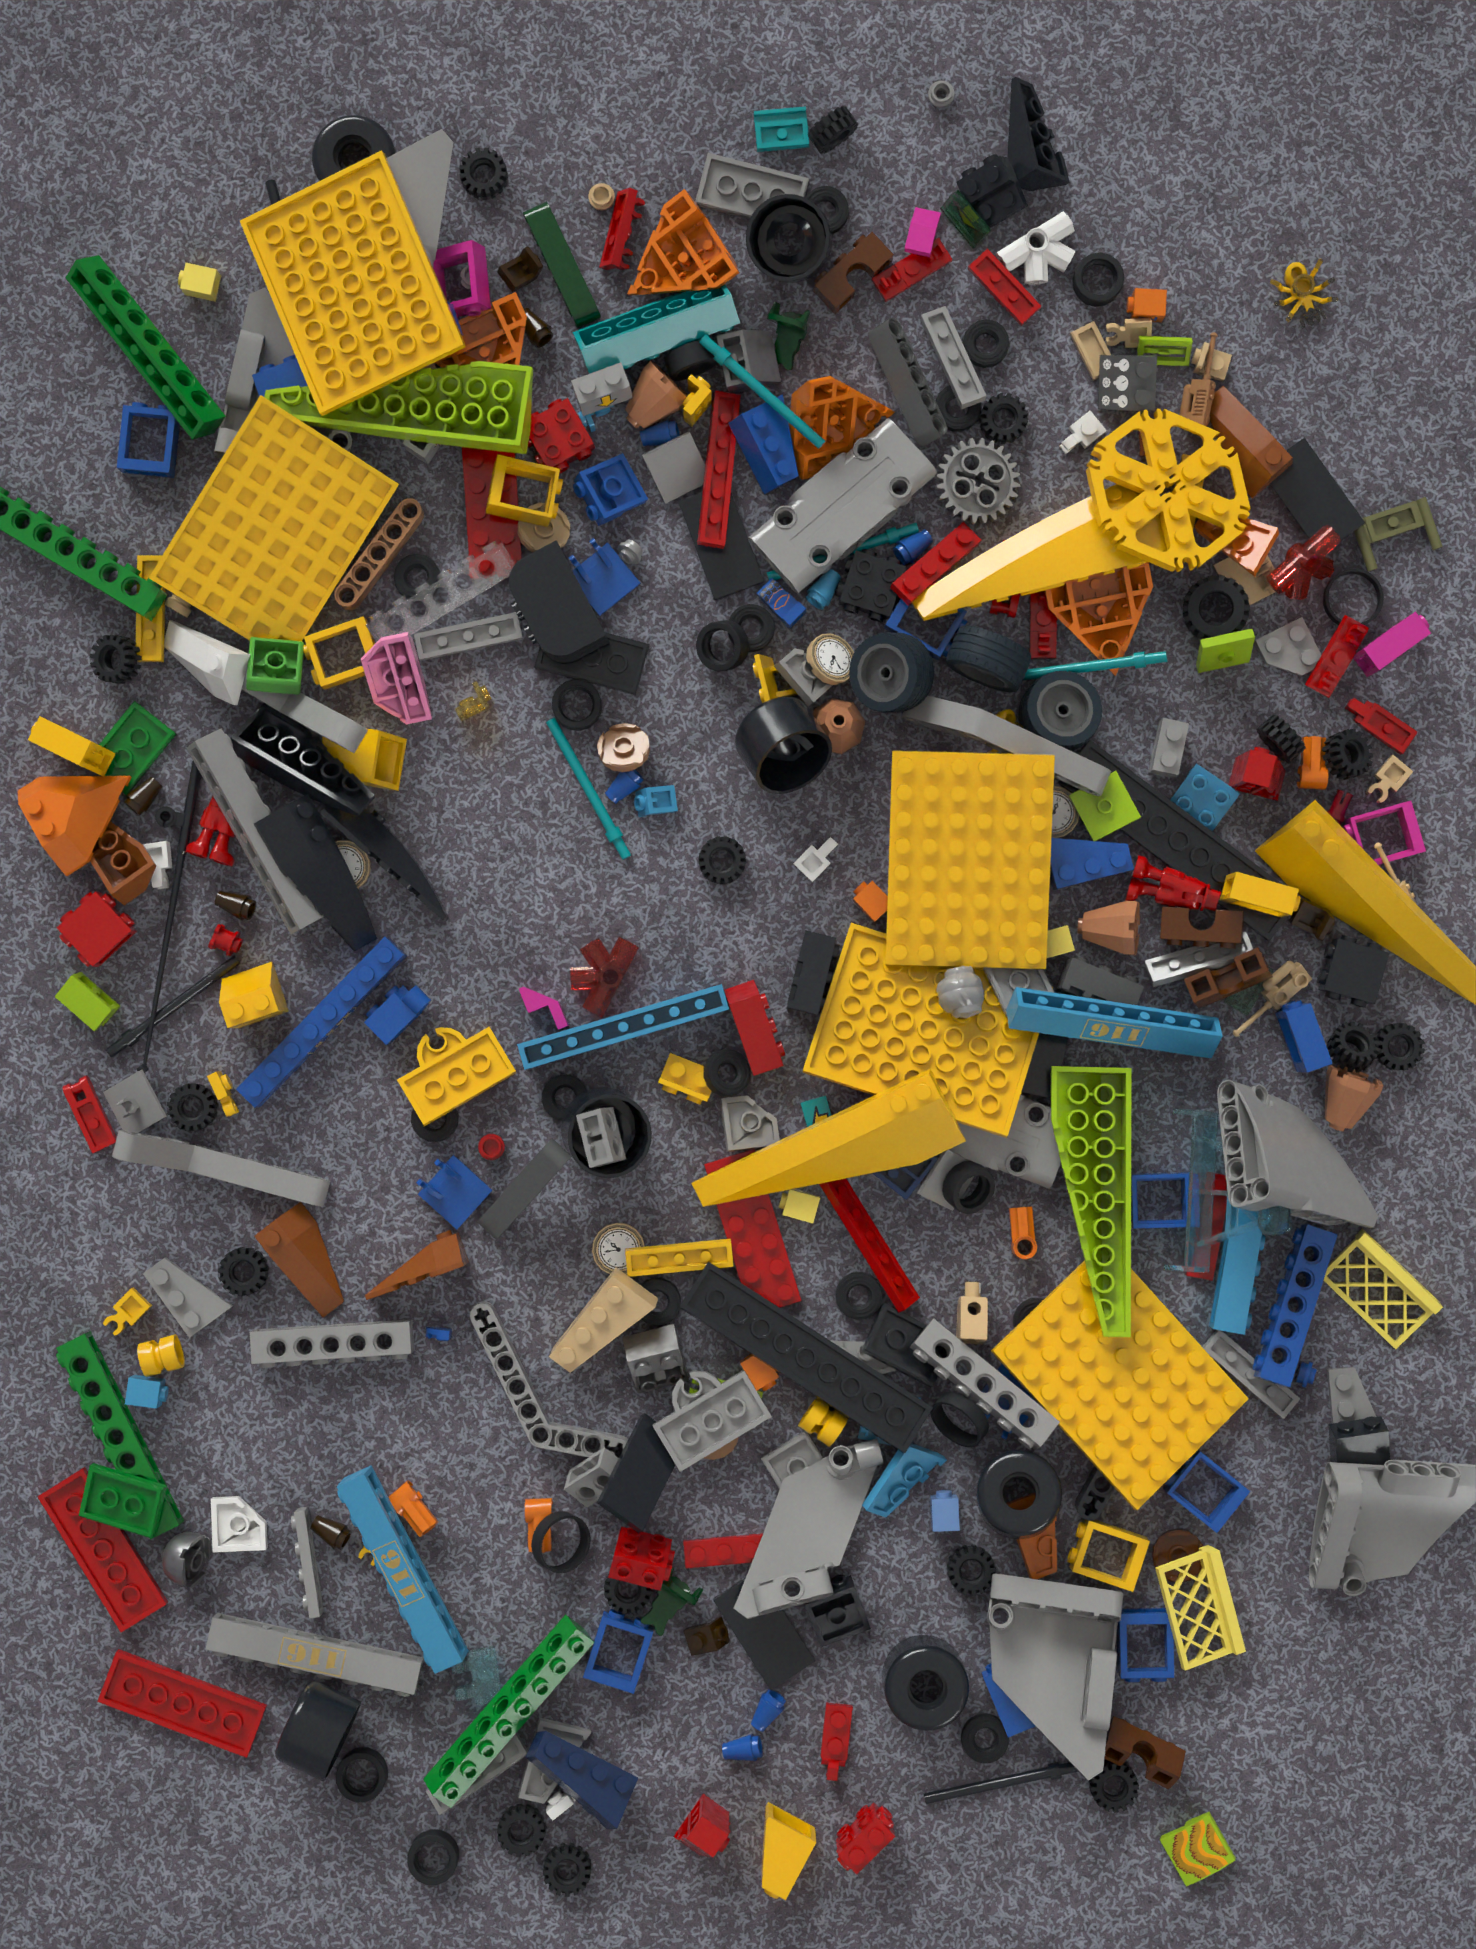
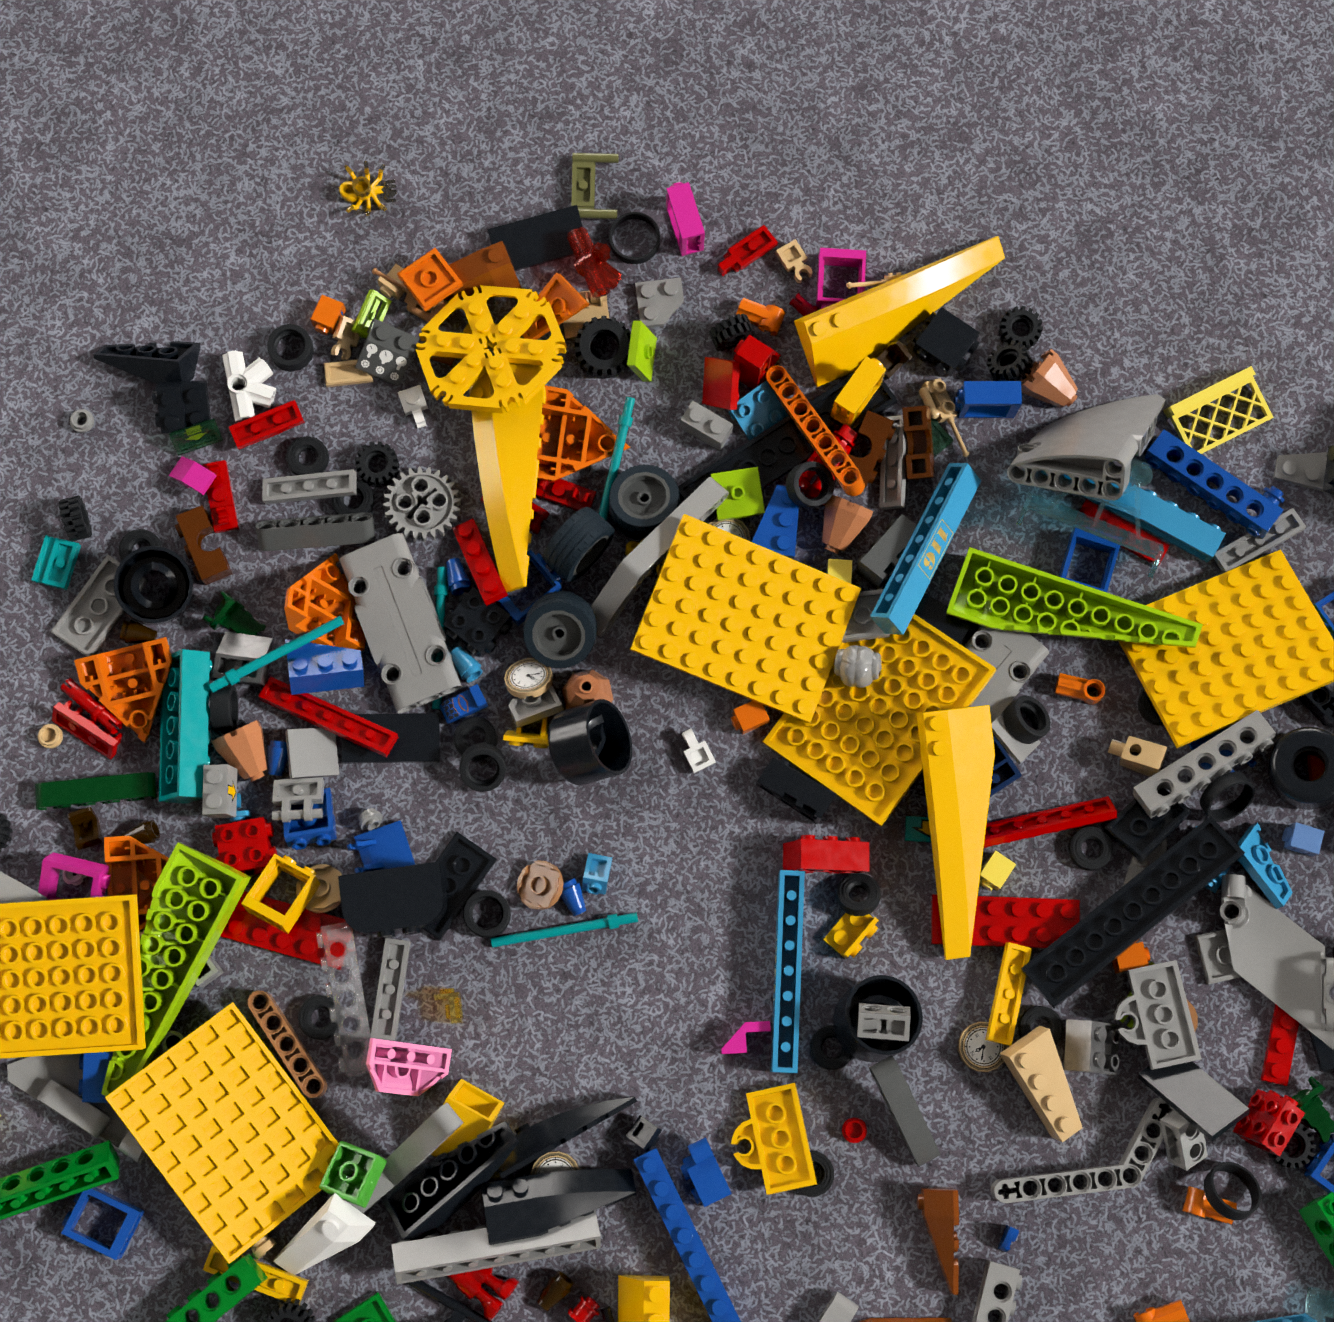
camera: 75 degrees left, 10 degrees down
(311, 652) = (352, 1137): yellow window -> none
(414, 938) = (644, 1133): none -> tile
(454, 1191) = (883, 1178): blue plate -> none
(600, 962) = (733, 984): clear red piece -> none
(630, 467) = (298, 792): none -> light grey plate
(642, 234) = (98, 712): none -> red pin
(697, 401) = (259, 710): yellow bracket -> none
(729, 845) = (680, 823): black tyre -> none
(736, 241) = (136, 633): none -> dark brown cone
(747, 1124) = (909, 892): light grey plate -> none
(823, 1422) = (1193, 917): yellow wheel -> none
(1145, 896) = (826, 479): none -> black tyre
(1192, 870) = (819, 438): none -> orange beam
(1218, 747) = (721, 383): none -> red tile
(1223, 397) = (430, 279): none -> orange plate
(1336, 755) = (763, 284): black tyre -> none
(1337, 656) = (678, 266): red plate -> none

